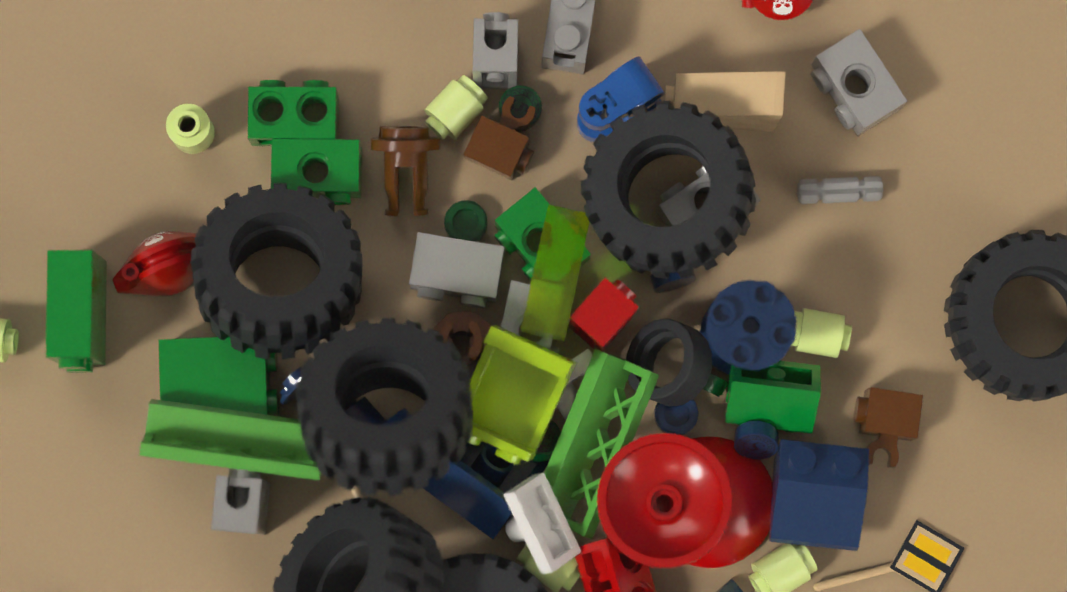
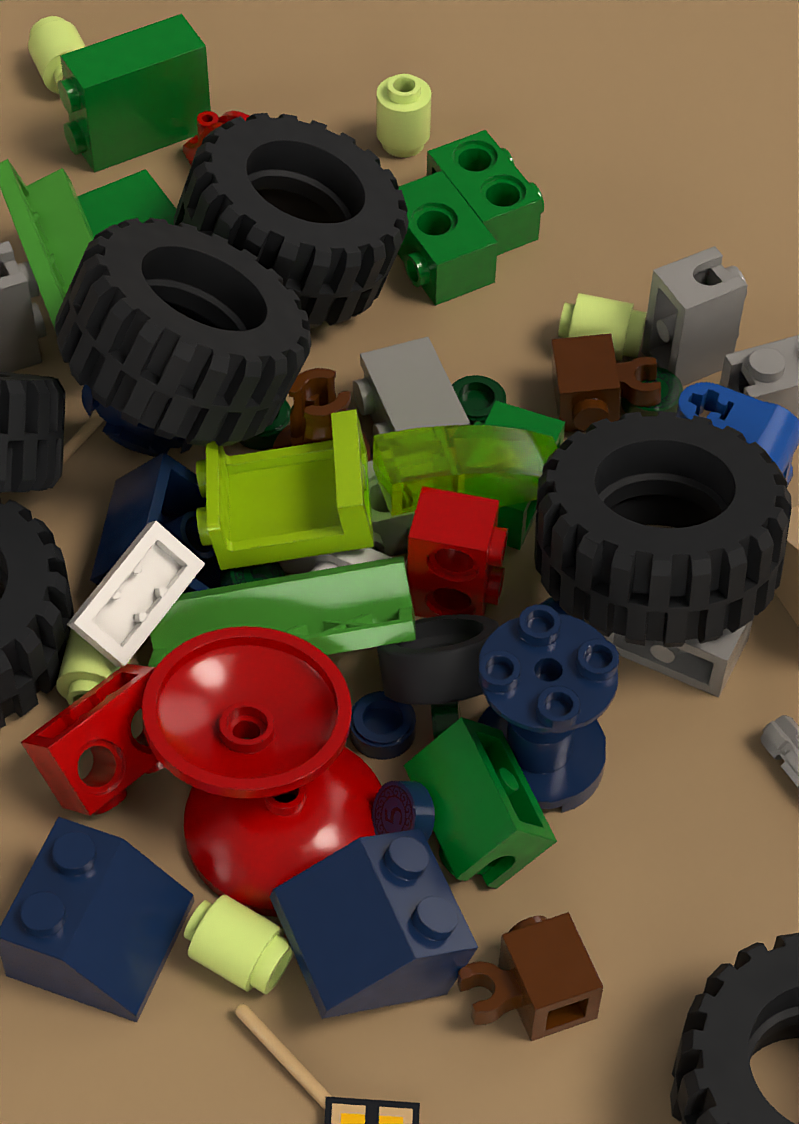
camera: 65 degrees right, 30 degrees down
(405, 148) = (496, 307): reddish brown piece -> none
(821, 333) = (602, 829): yellowish green brick -> none

